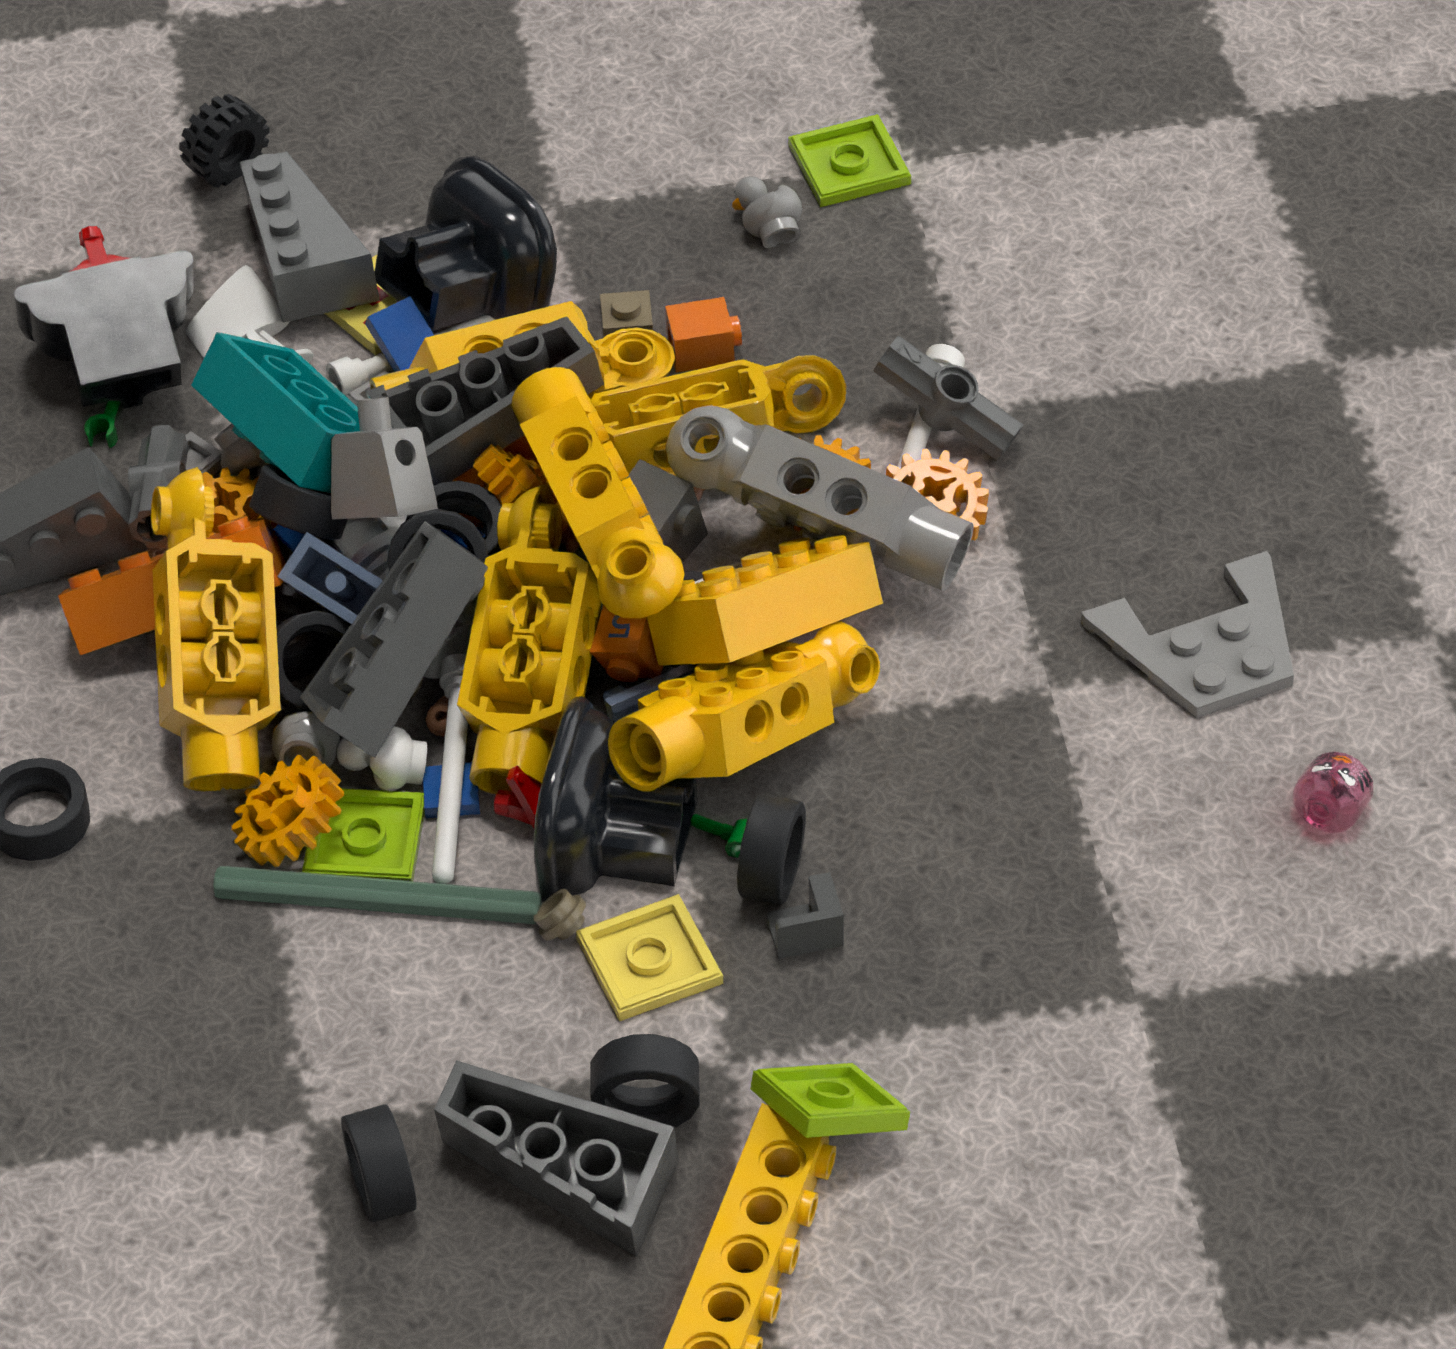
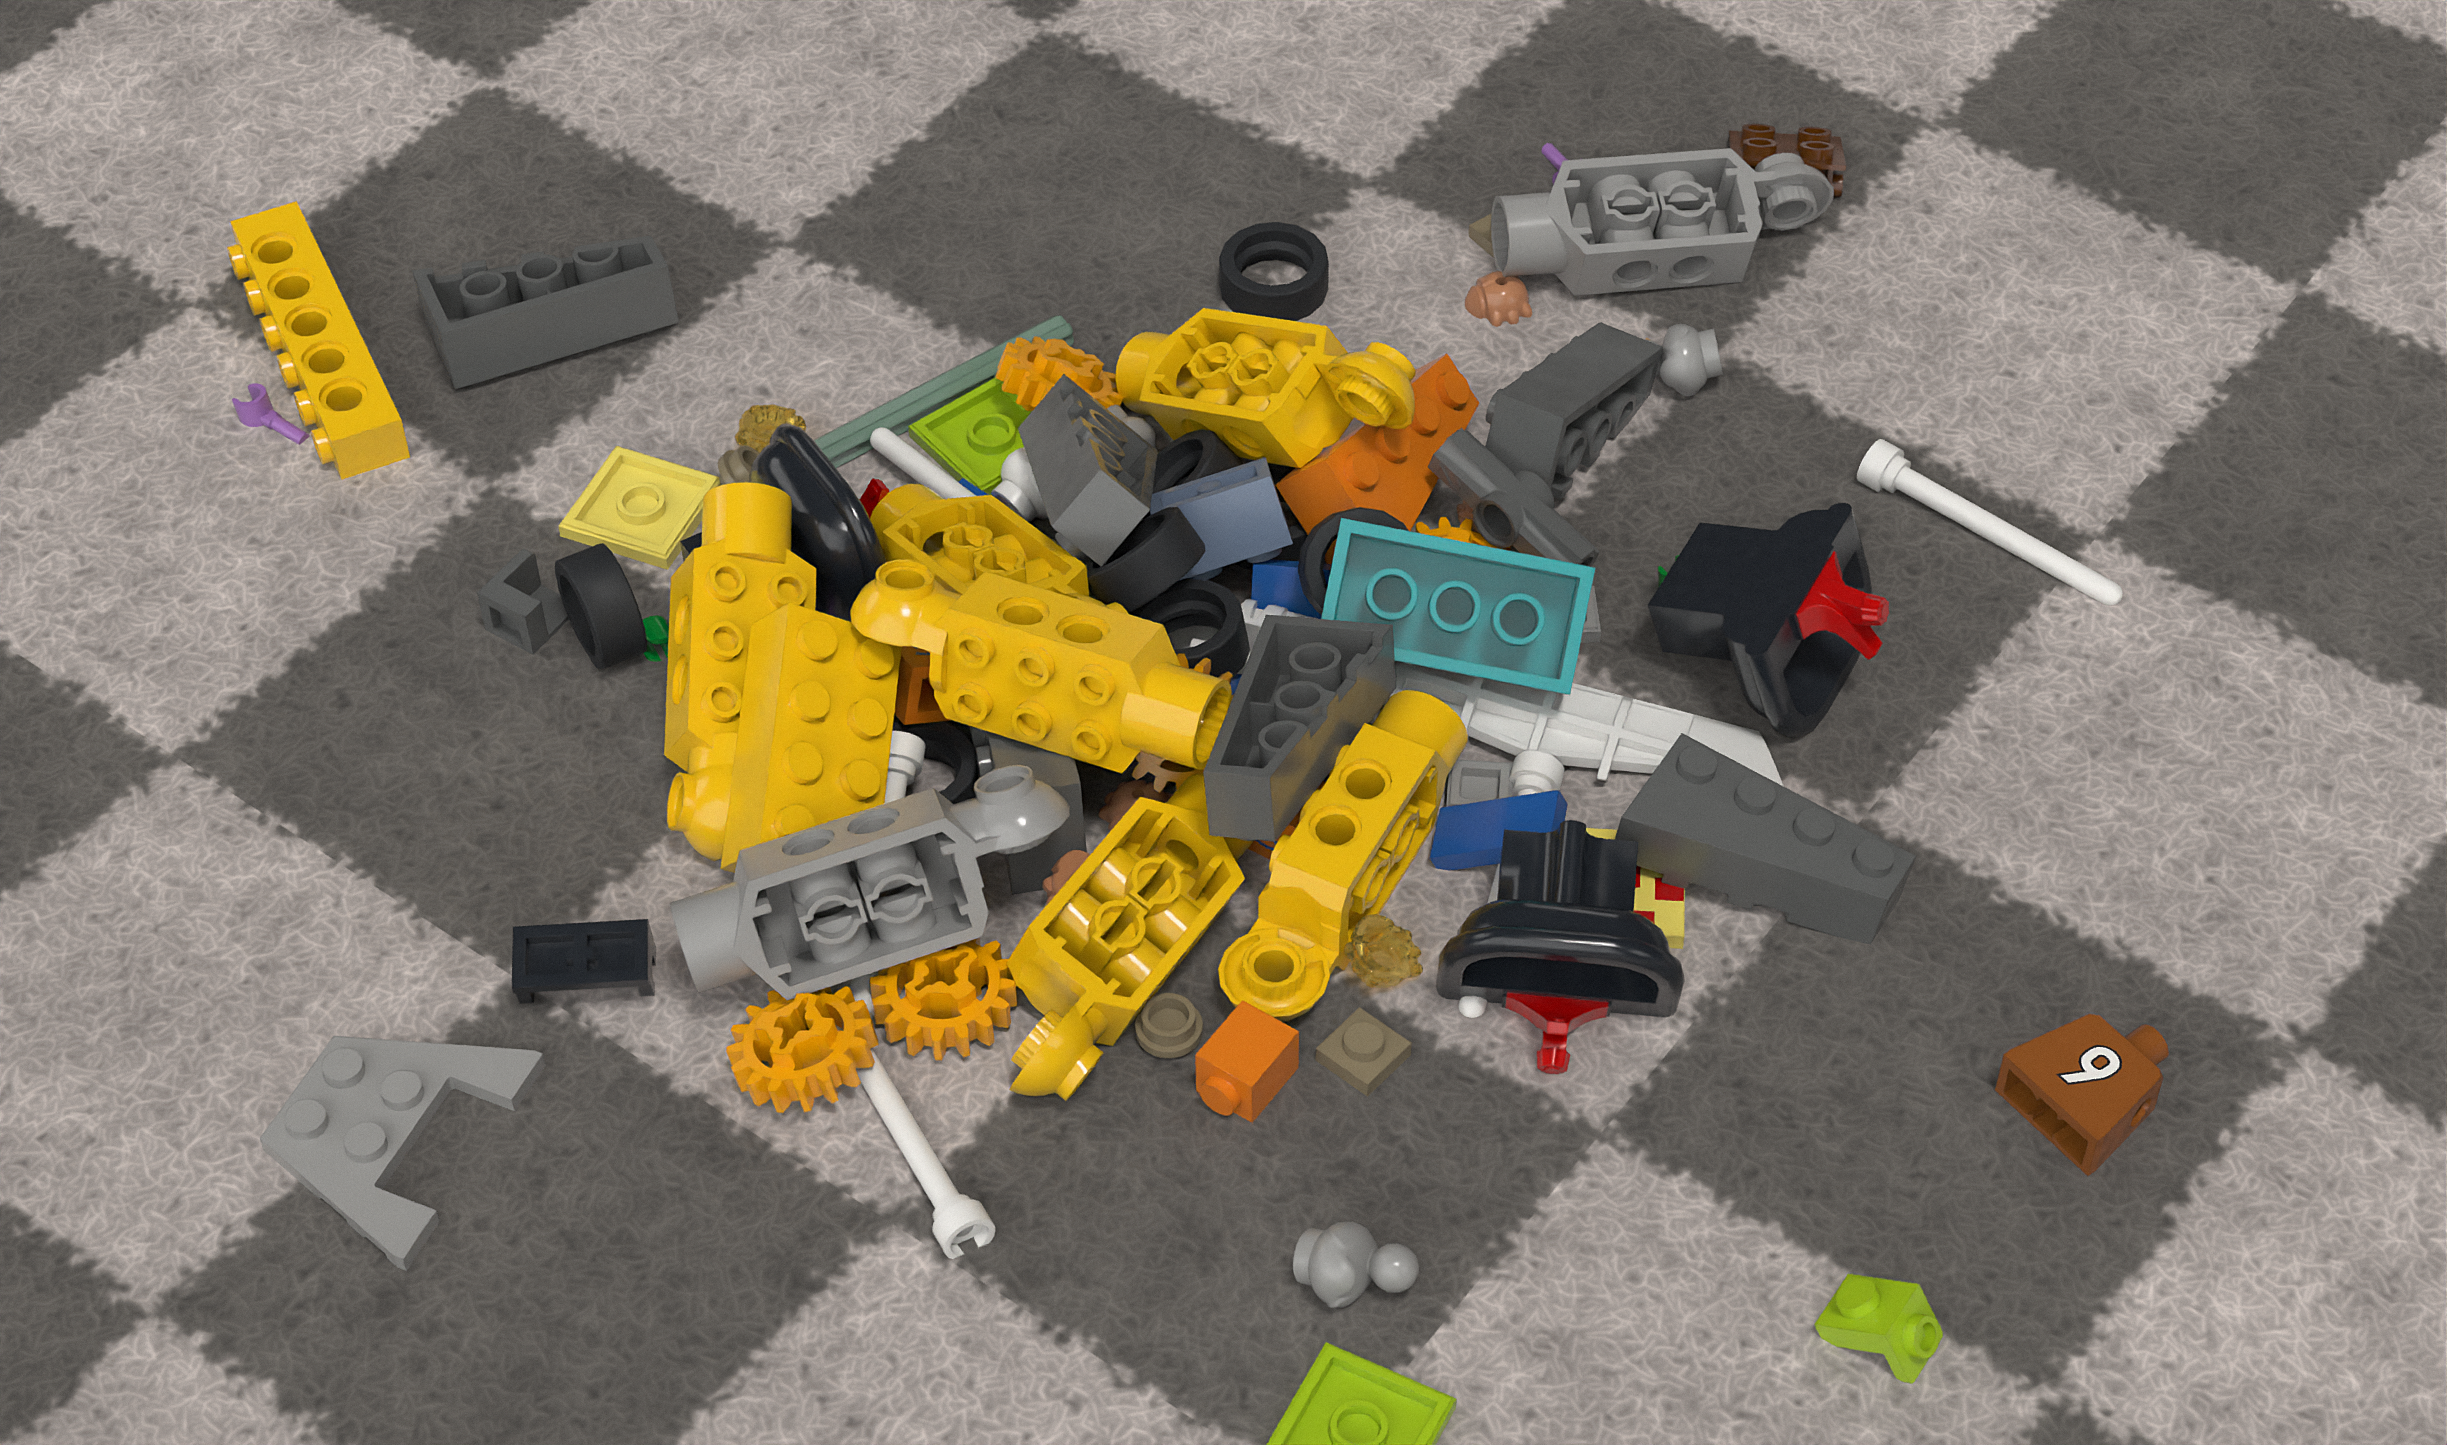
camera: 135 degrees right, 0 degrees up
(223, 138) = (1983, 891): black tyre -> none
(306, 48) = (2085, 1085): none -> dark orange torso
(379, 1163) = (684, 189): black tyre -> none
(380, 468) = (1285, 558): light grey torso -> none
(503, 930) = (760, 423): none -> clear yellow animal
(549, 34) = (1883, 1319): none -> lime bracket
(646, 1059) = (494, 360): black tyre -> none
(829, 1100) = (347, 460): lime tile -> none
(833, 1239) = (261, 412): none -> medium lavender hand
(948, 397) = (919, 1138): dark grey piece -> none
(1009, 637) = (582, 957): none -> black hinge
(1333, 792) = (116, 1033): clear pink head -> none

